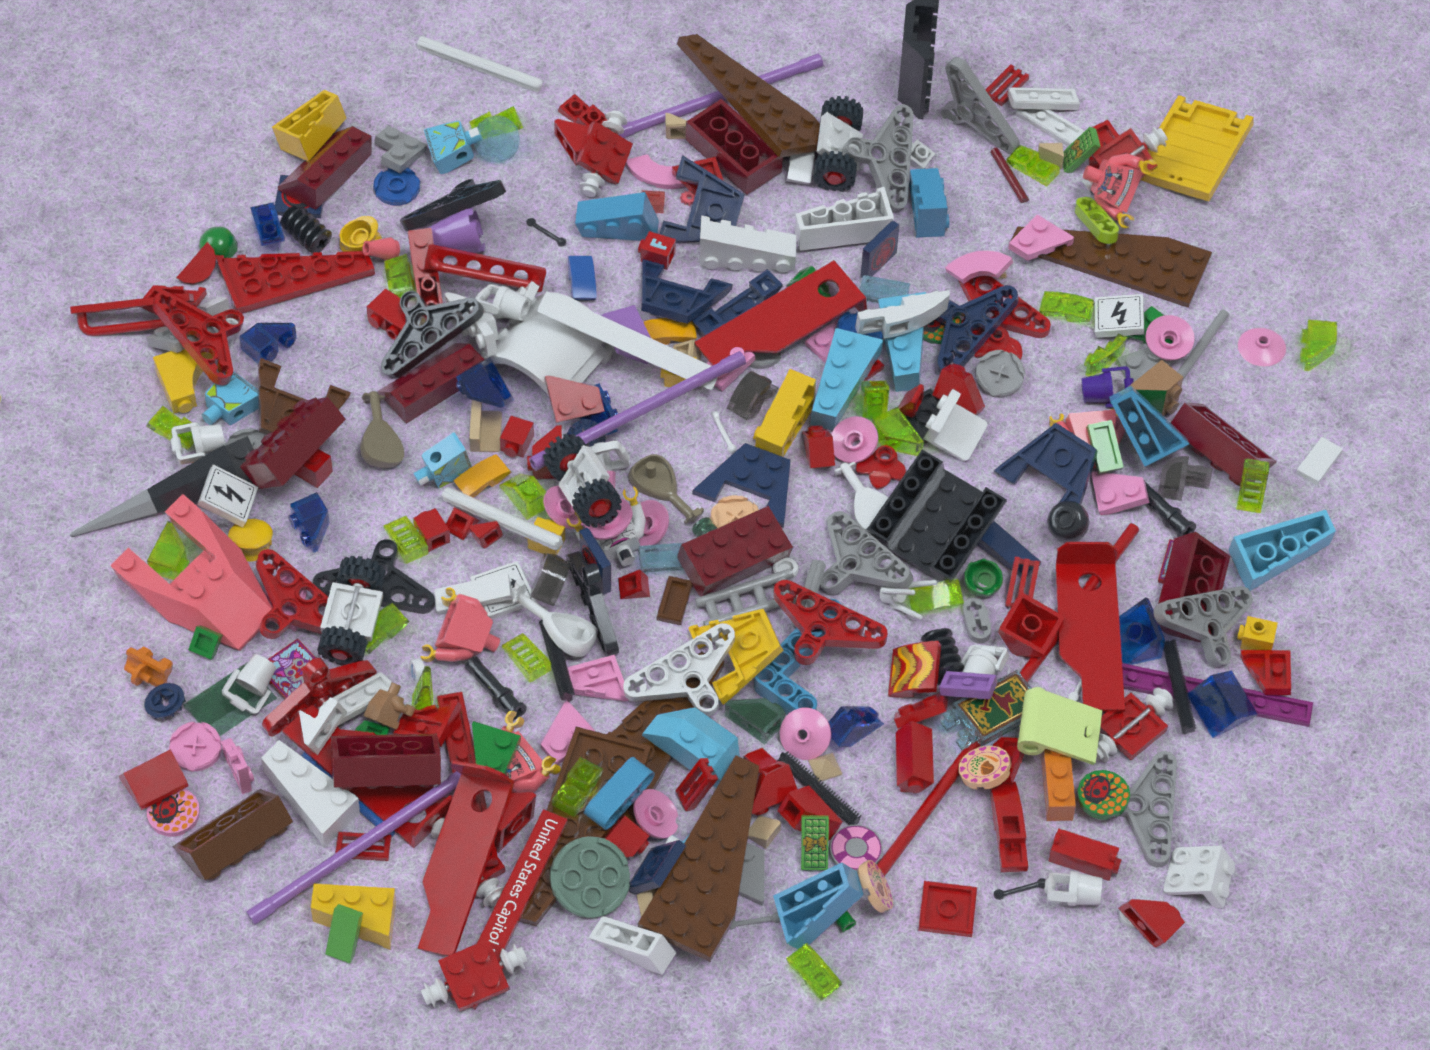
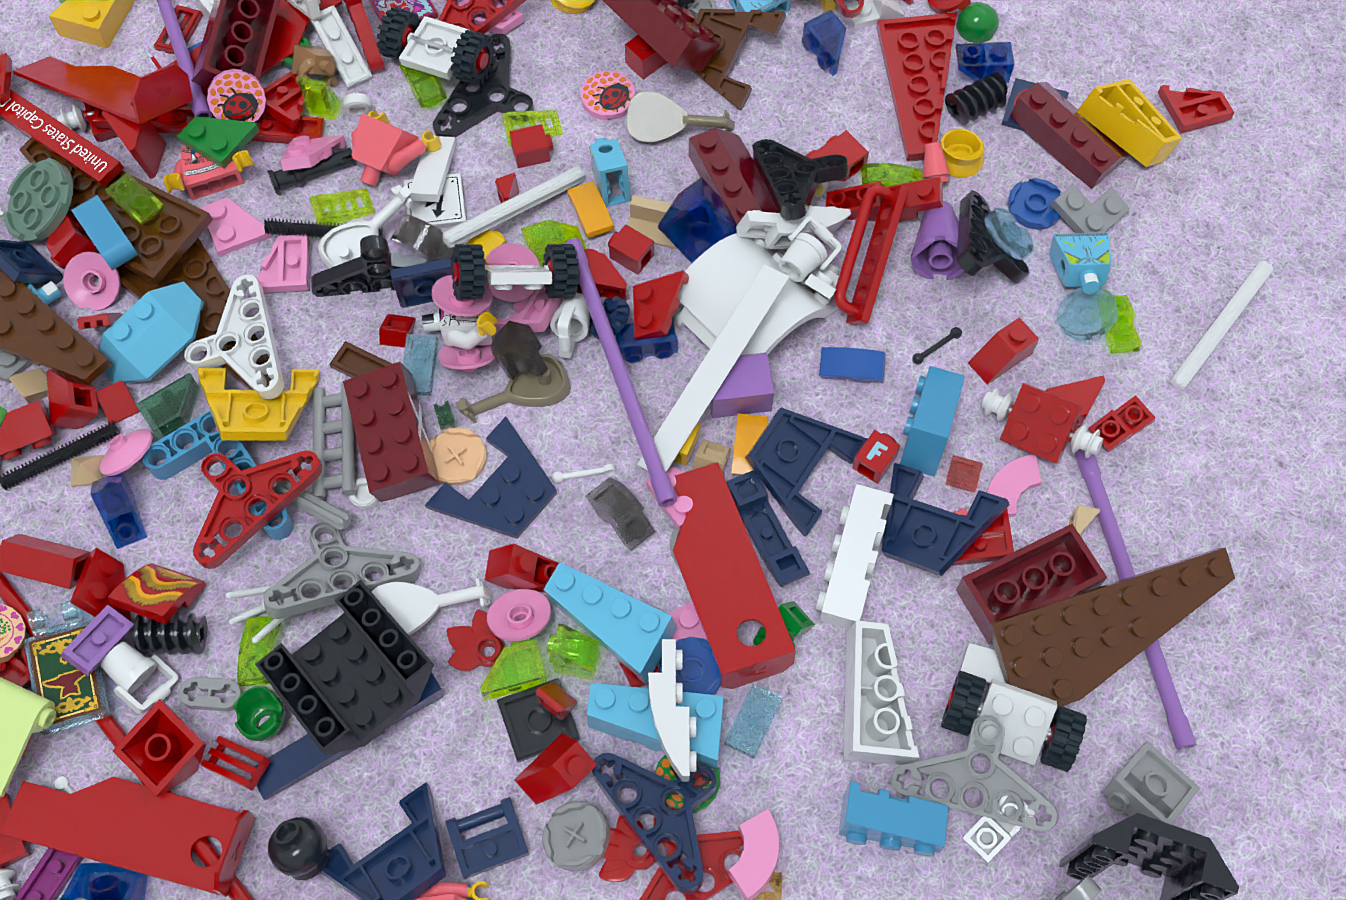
camera: 105 degrees right, 10 degrees up
(277, 93) = (1195, 107): none -> red wing
(311, 518) = (575, 43): clear blue slope -> none
(358, 491) = (607, 95): none -> tile
(438, 192) = (1007, 234): none -> clear light blue tile
(451, 740) = (236, 96): none -> tile
(459, 523) = (534, 177): red slope -> none
(483, 686) = (308, 152): none -> bright pink wing
(544, 185) = (1004, 351): none -> red slope
(647, 490) = (517, 350): none -> clear smoke brick
(786, 414) = (573, 538): yellow wedge -> none
(859, 72) = (1151, 786): none -> light grey plate
(879, 249) = (809, 722): dark blue tile -> none
(955, 428) = (497, 745): white bracket -> none
(1024, 420) = (491, 847): none -> dark blue plate

